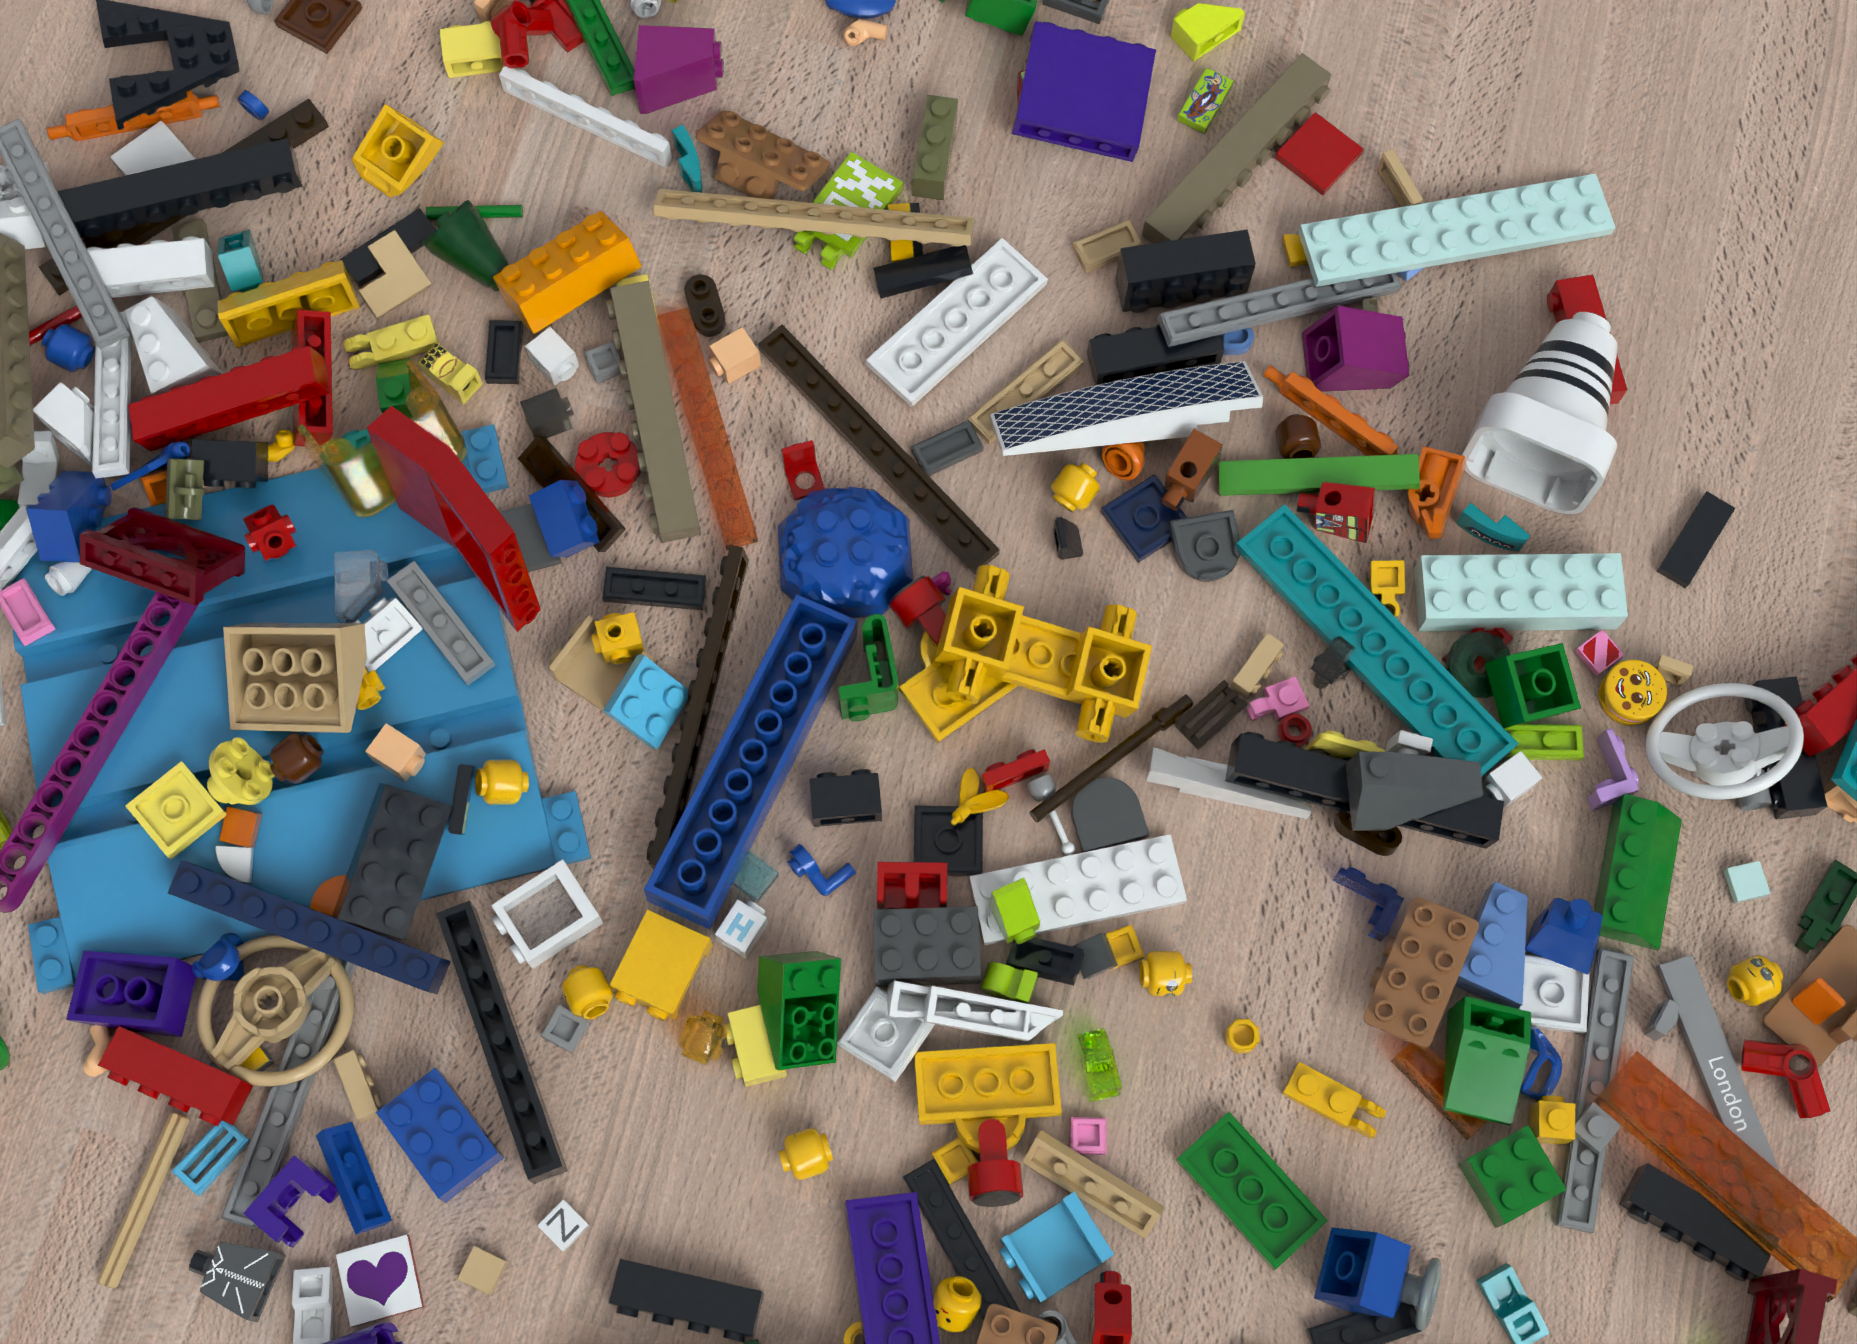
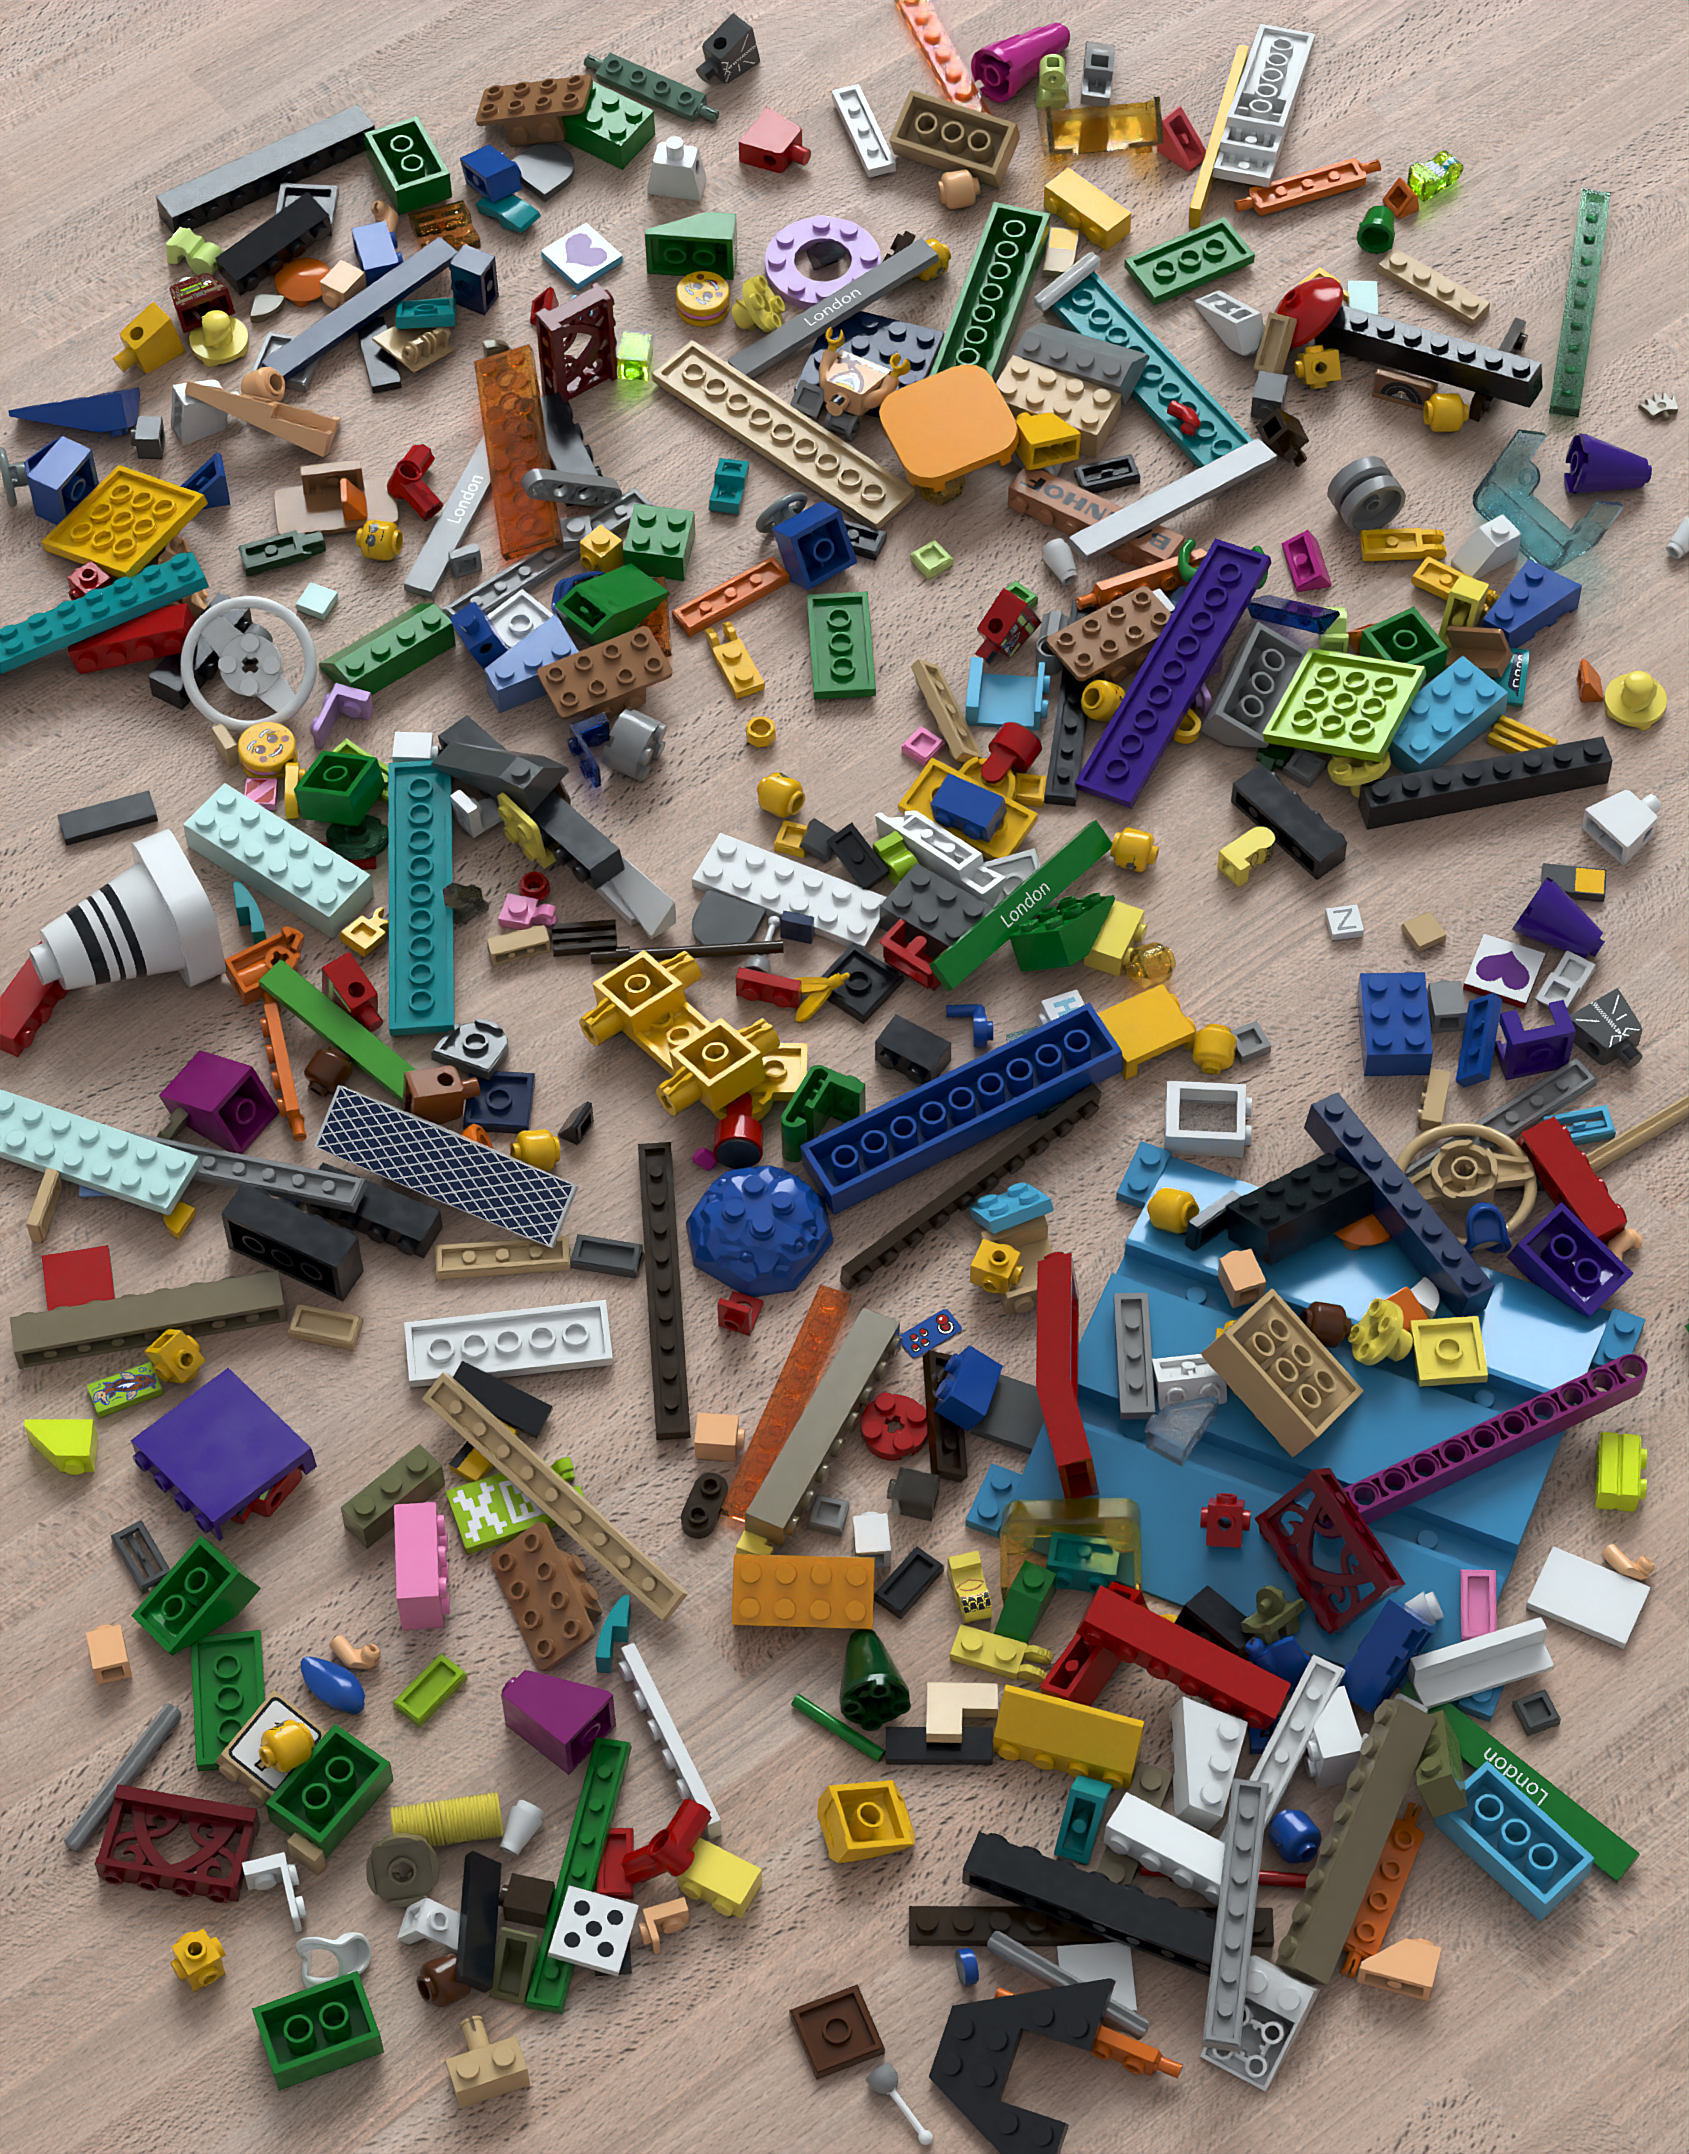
camera: 140 degrees left, 15 degrees down
(167, 134) = (1056, 1977): none -> light grey axle
(406, 1193) = (1446, 1006): none -> light grey brick
(502, 1043) = (1303, 1052): black brick -> none
(646, 554) = (930, 1333): none -> blue sticker
(654, 588) = (935, 1303): black tile -> none
(700, 1245) = (1245, 853): none -> light yellow leg
(790, 46) = (430, 1690): none -> lime tile
(856, 1006) = (1020, 905): none -> green tile
(865, 101) = (421, 1565): none -> bright pink brick
(980, 1069) = (968, 808): none -> blue brick
(1015, 911) = (856, 885): lime slope -> none
(1040, 850) = (797, 927): none -> dark blue tile
(1098, 1065) = (878, 774): clear neon green leg -> none
(1188, 134) = (175, 1356): none -> yellow brick
(1333, 923) = (634, 744): none -> light grey brick
(1400, 1170) = (730, 596): none -> orange tile
(1585, 679) = (293, 775): none -> yellow plate
(1638, 1158) = (542, 483): none -> light grey beam

